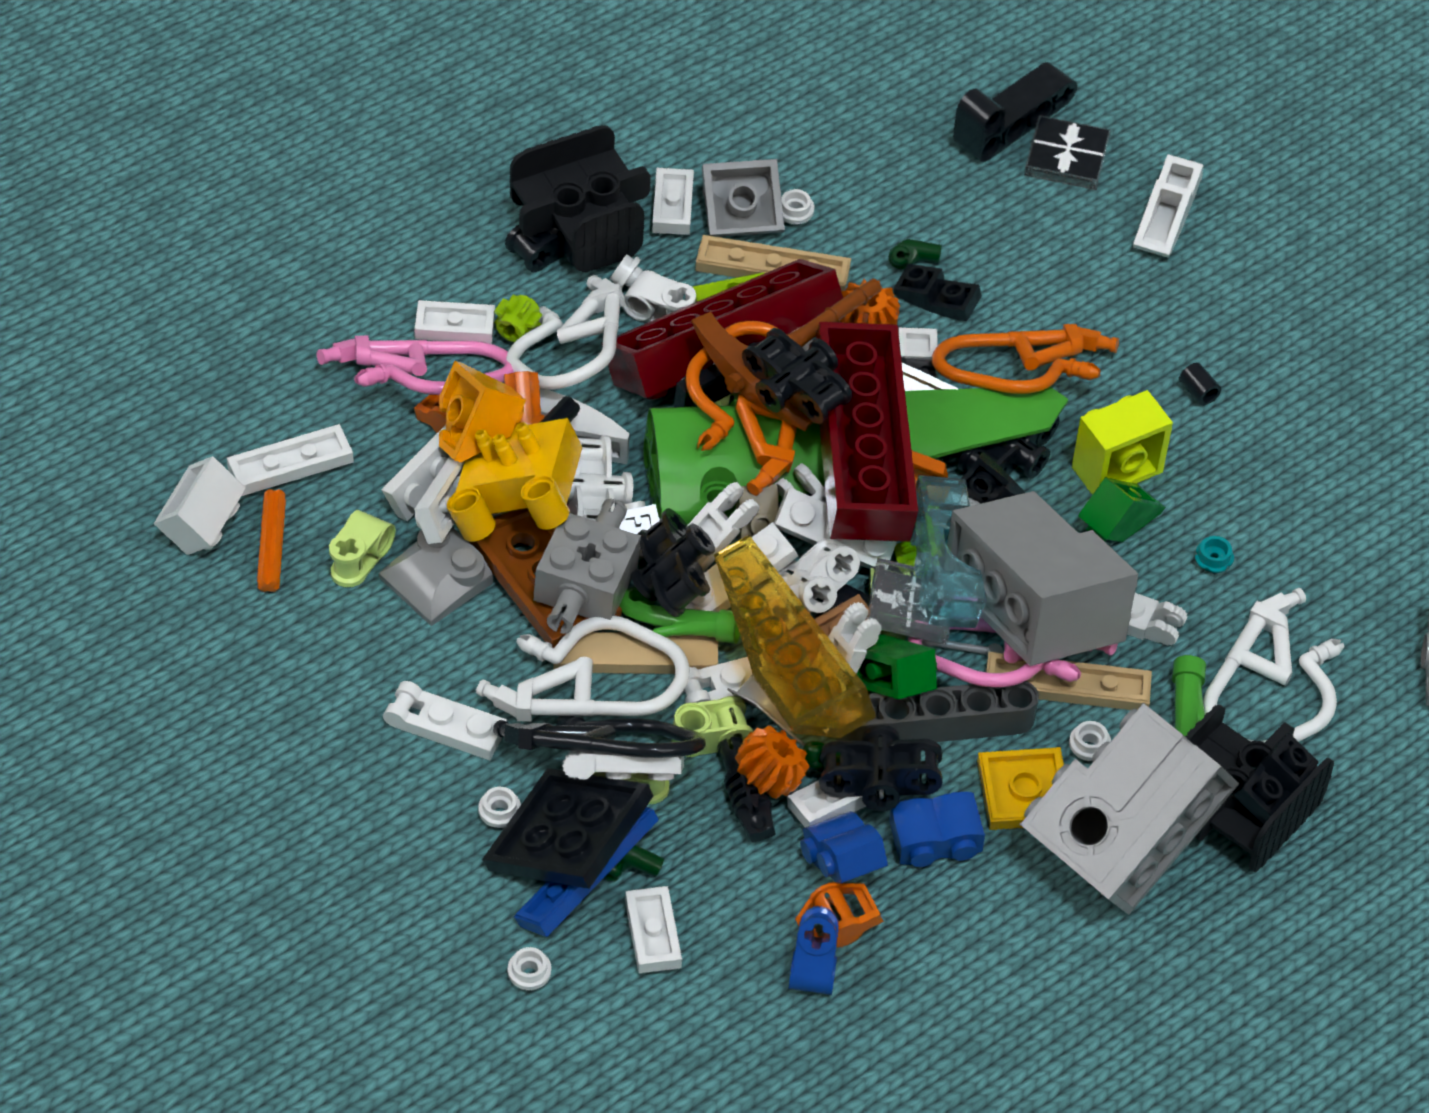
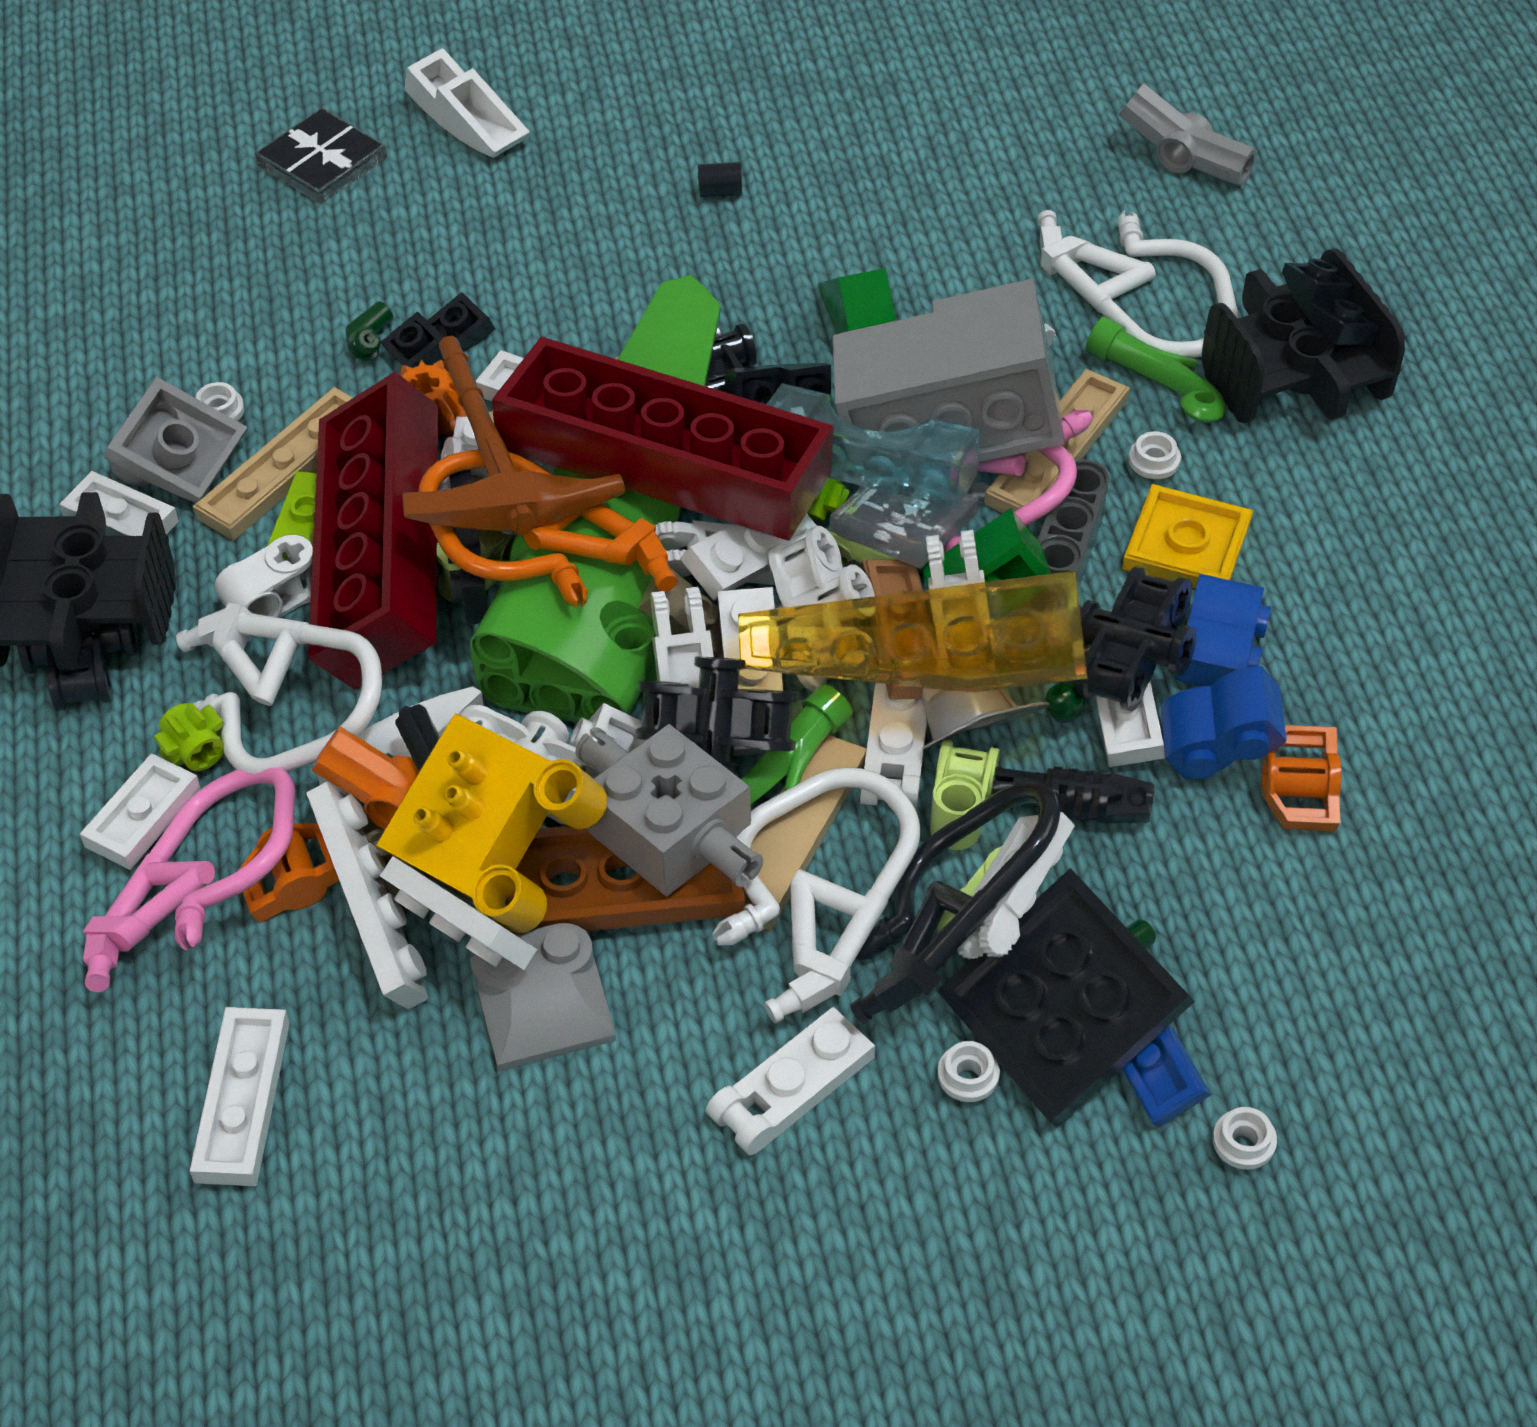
camera: 60 degrees left, 0 degrees up
(200, 506) = (259, 1237): white brick -> none
(271, 540) = (362, 1175): orange axle -> none
(359, 548) = (449, 1069): yellowish green piece -> none
(472, 404) = (362, 817): light orange slope -> none
(626, 271) = (197, 597): white plate -> none
(653, 929) = (1244, 974): white plate -> none
(772, 761) = (1072, 739): orange gear -> none
(797, 375) = (567, 445): black axle -> none
(815, 957) = (1362, 813): blue piece -> none
(991, 125) = (235, 169): black beam -> none
(1066, 343) = (594, 249): orange piece -> none
(1122, 441) = (780, 258): neon yellow brick -> none
(1130, 808) = (1323, 428): light grey piece -> none
(1214, 547) = (956, 258): teal plate -> none

